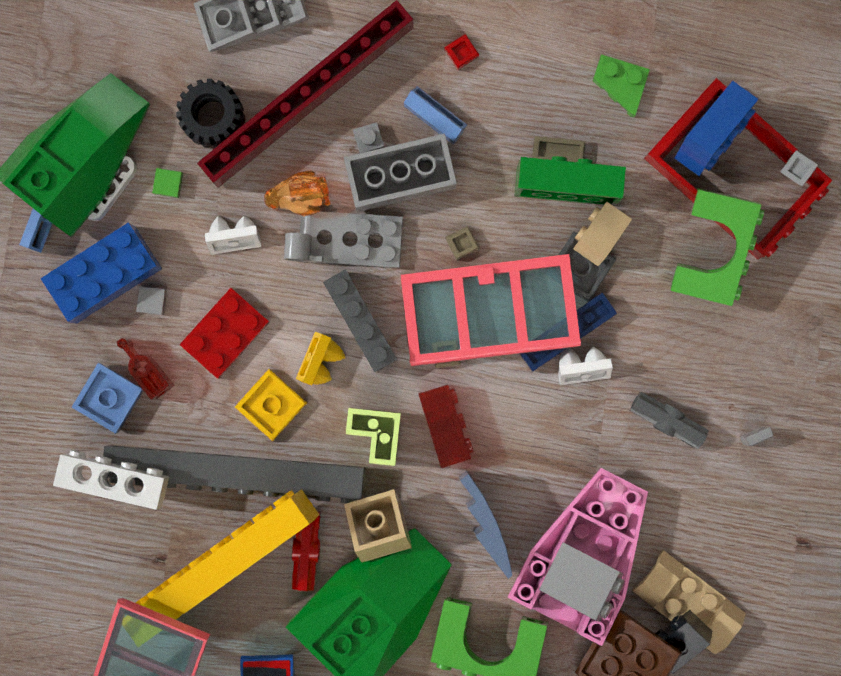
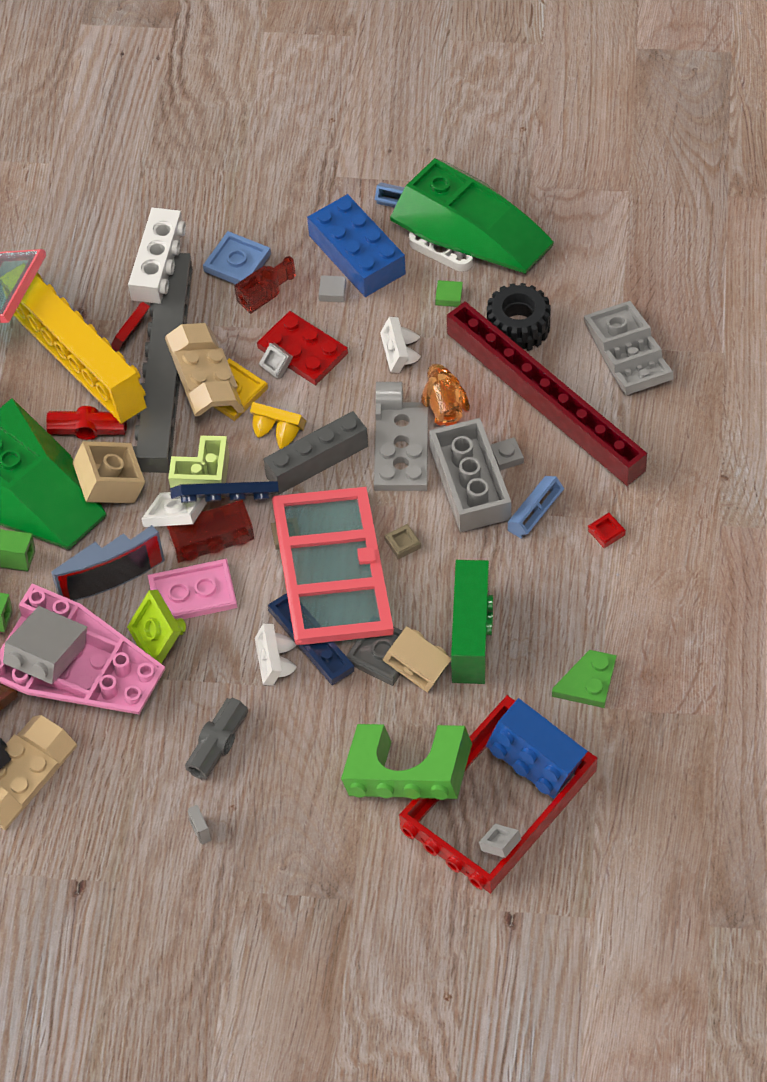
camera: 90 degrees right, 30 degrees down
(189, 508) = (130, 326): none -> red tile
(242, 359) = (275, 360): none -> light grey tile
(258, 431) = (202, 368): none -> tan piece
(411, 410) = (214, 491): none -> dark blue plate
(422, 459) = (171, 512): none -> white tile
(505, 444) = (196, 589): none -> bright pink tile
(548, 147) = (506, 624): dark tan tile -> none
(557, 476) = (155, 626): none -> lime tile

